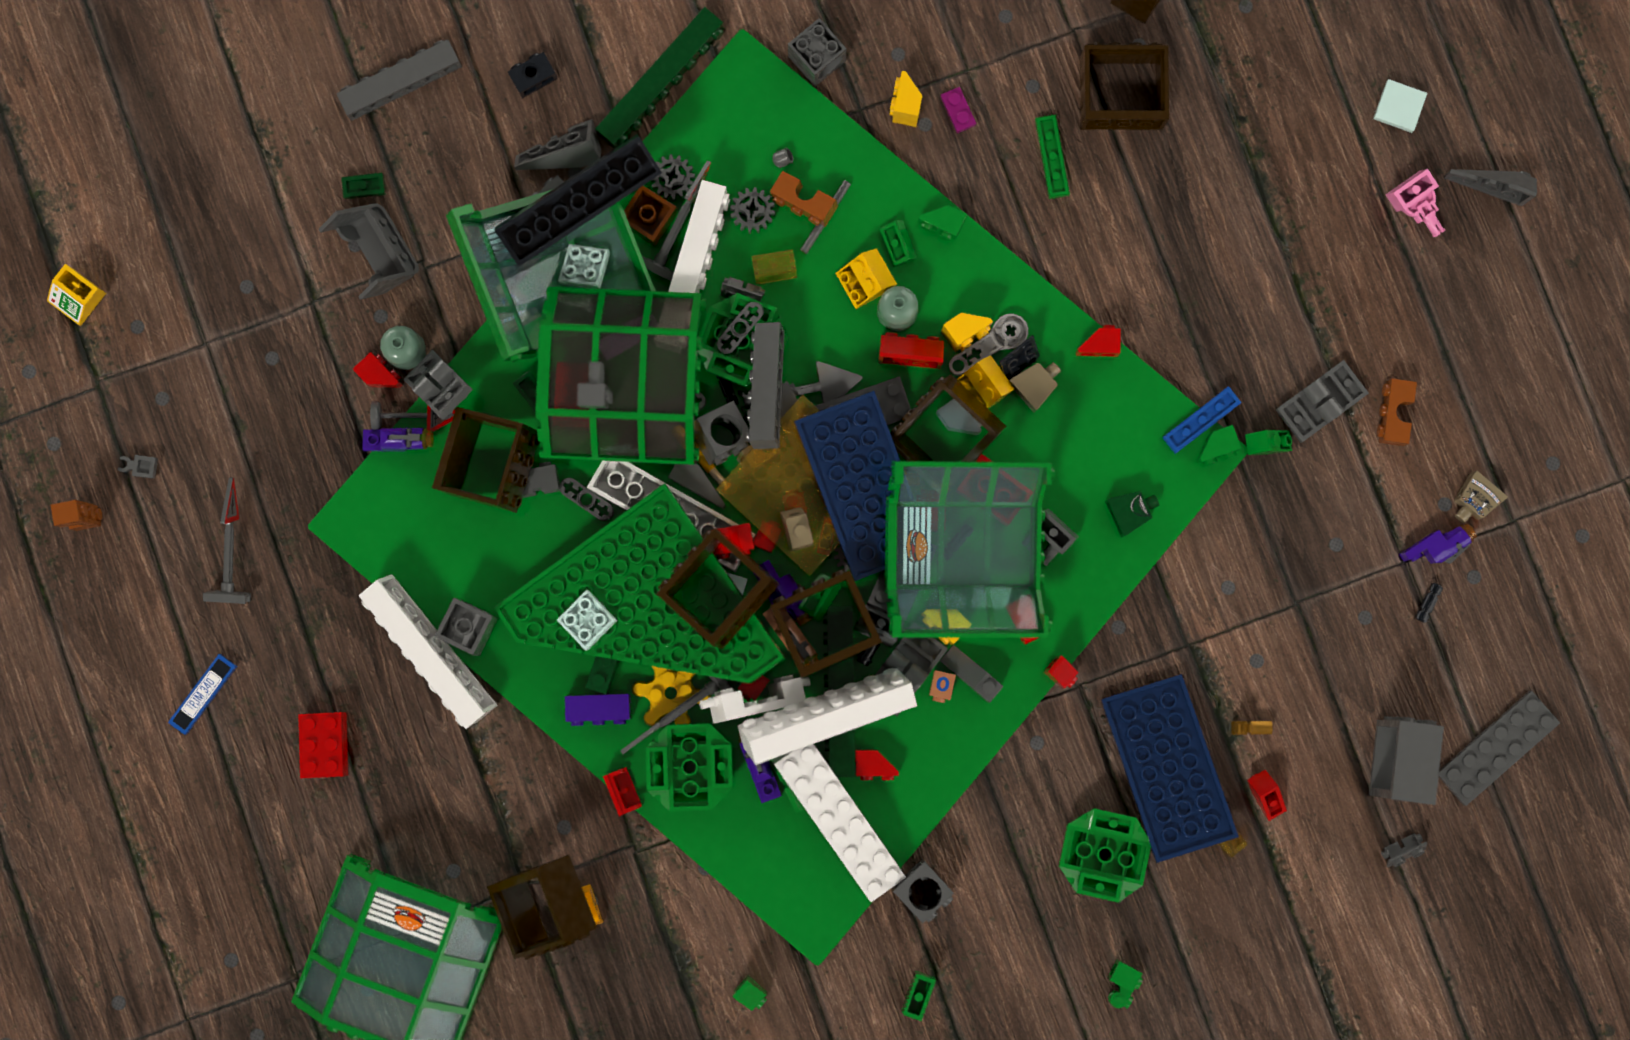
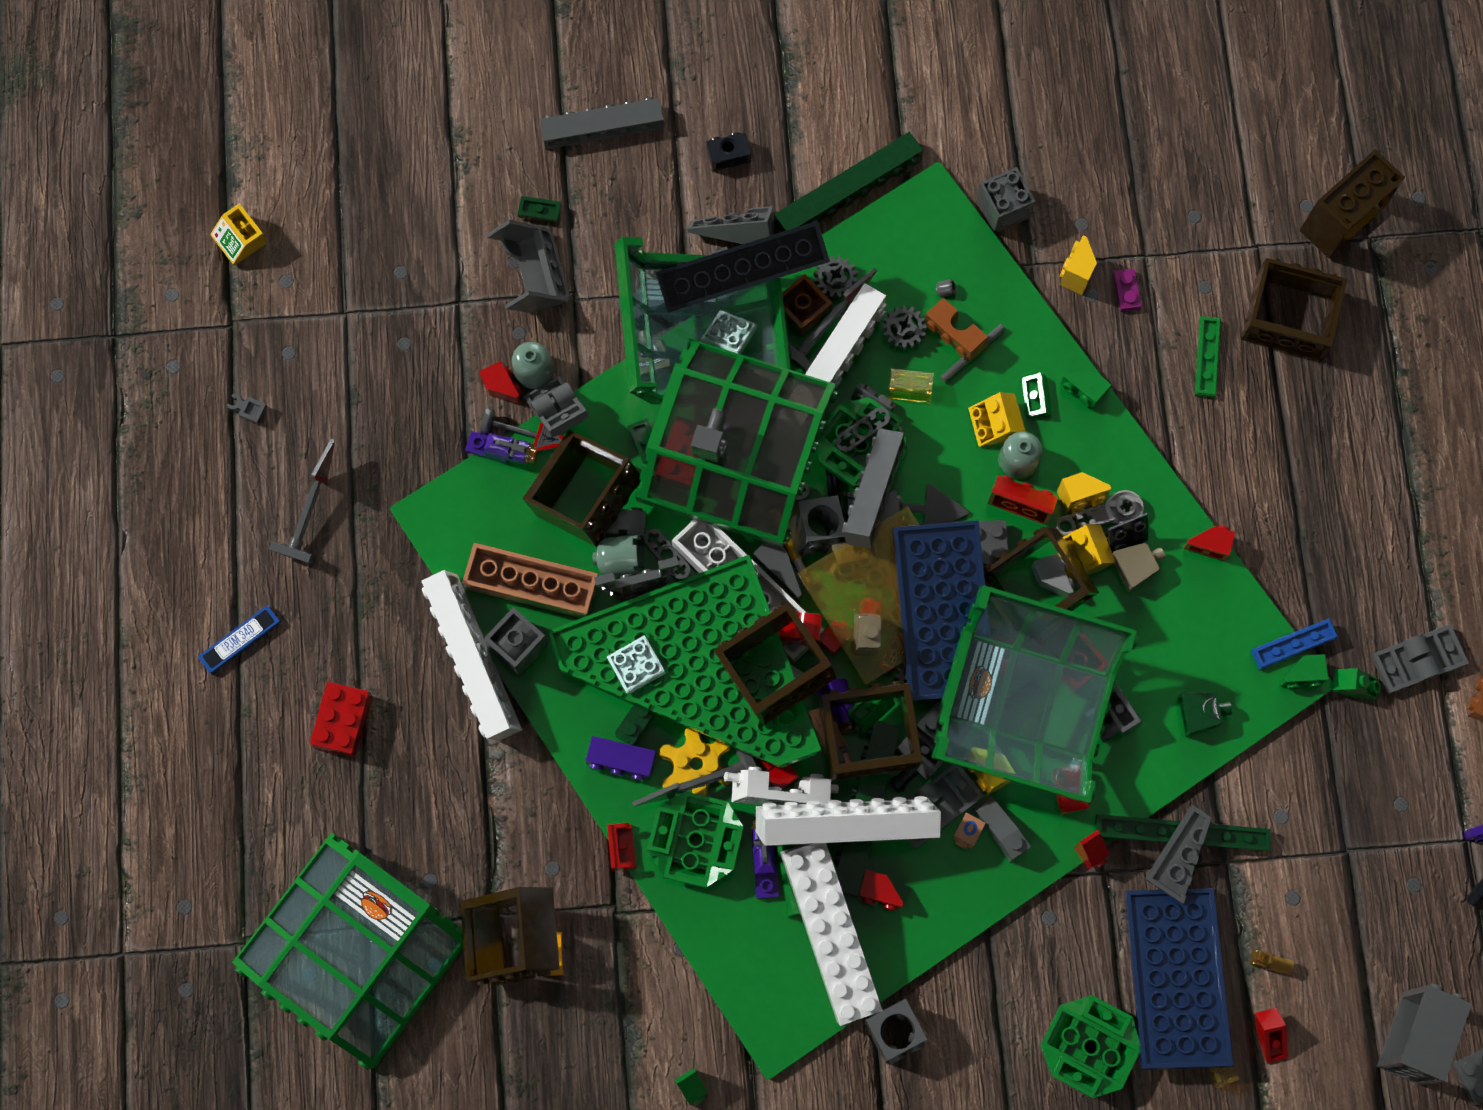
camera: 15 degrees right, 10 degrees down
(76, 515) = (175, 433): dark orange arch -> none
(463, 562) = (530, 581): none -> nougat brick
(542, 515) = (619, 555): none -> sand green cylinder
(563, 541) = (633, 586): none -> dark grey wing
(1140, 630) = (1162, 830): none -> dark green plate
(1141, 663) = (1177, 860): none -> dark grey wing

